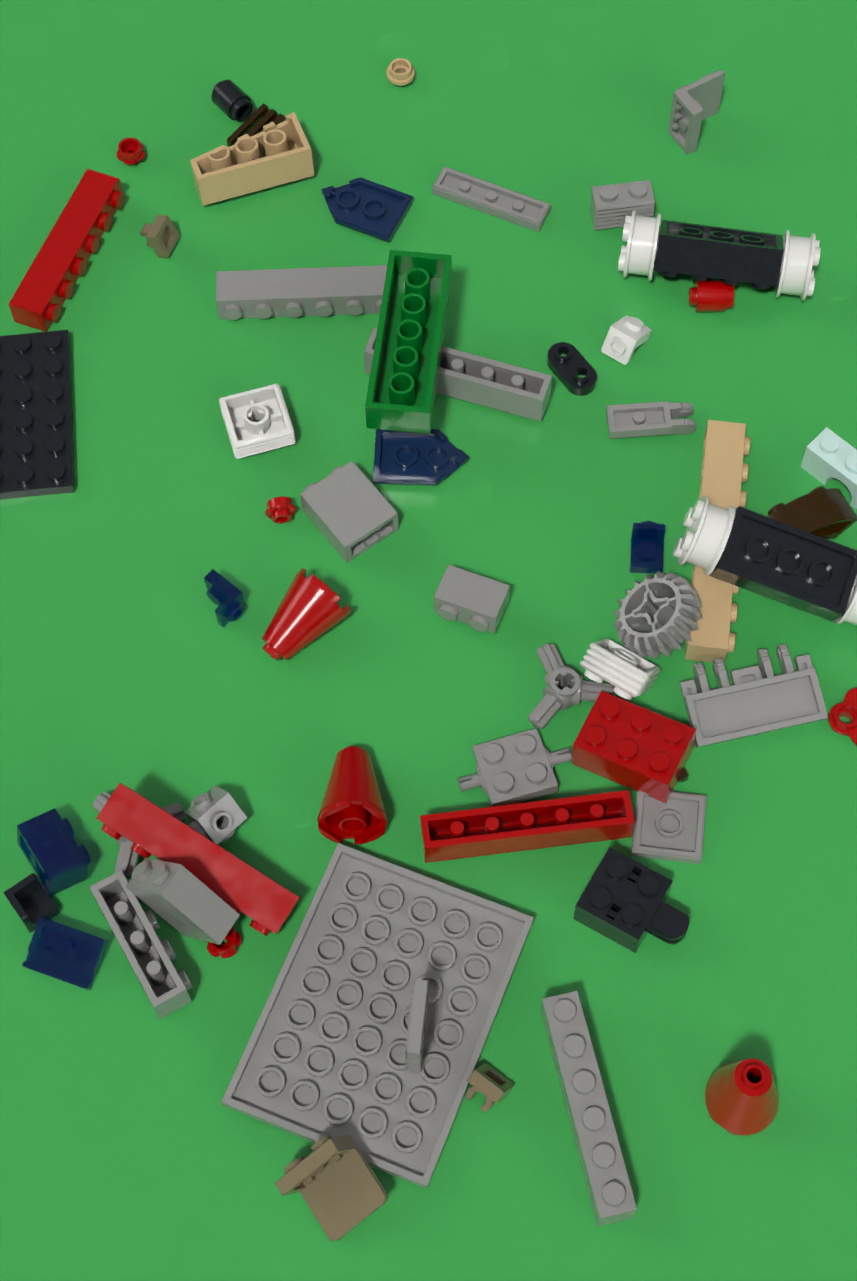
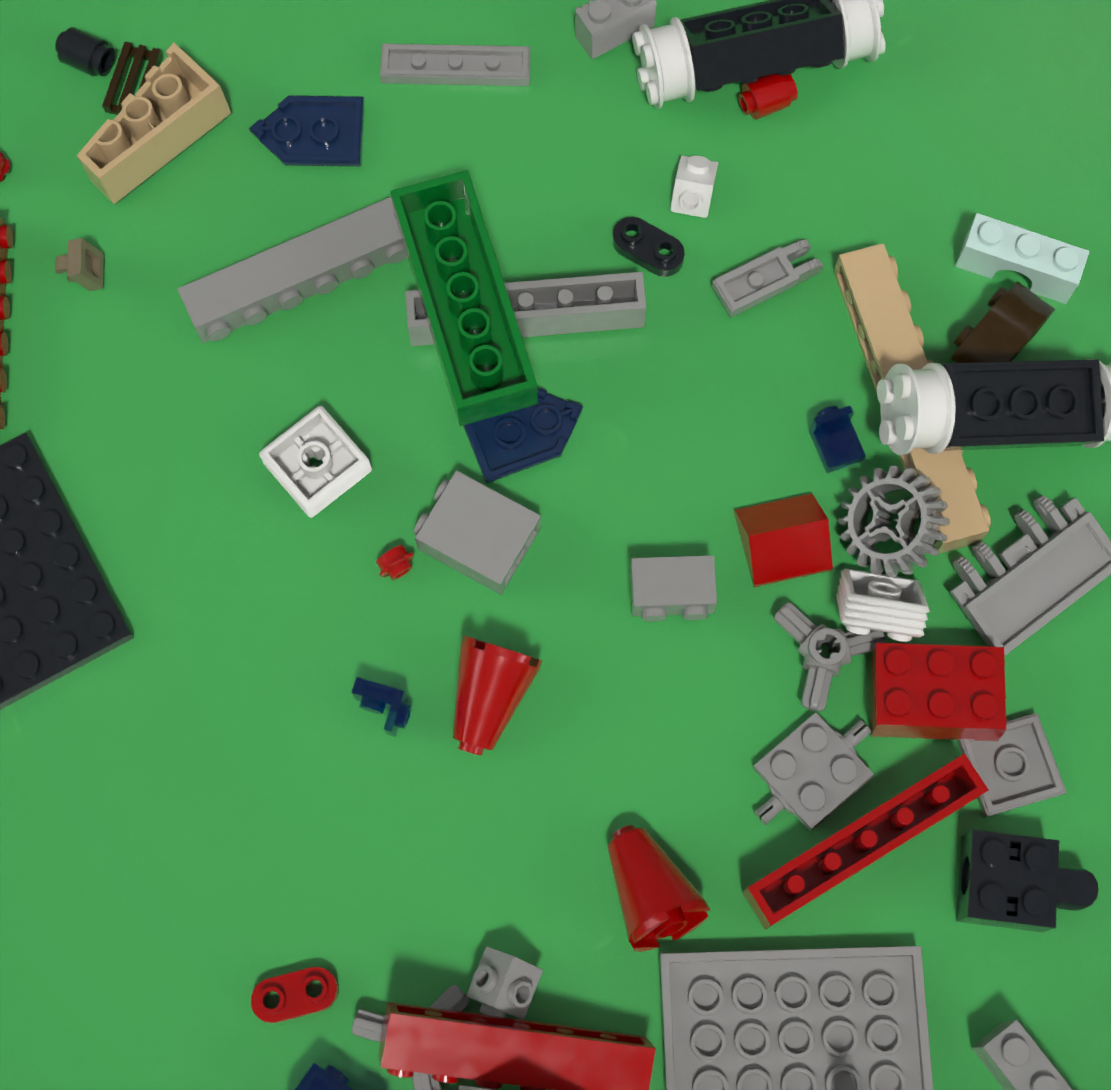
camera: 25 degrees left, 10 degrees up
(64, 767) = (294, 995): none -> red plate
(572, 604) = (785, 539): none -> red slope

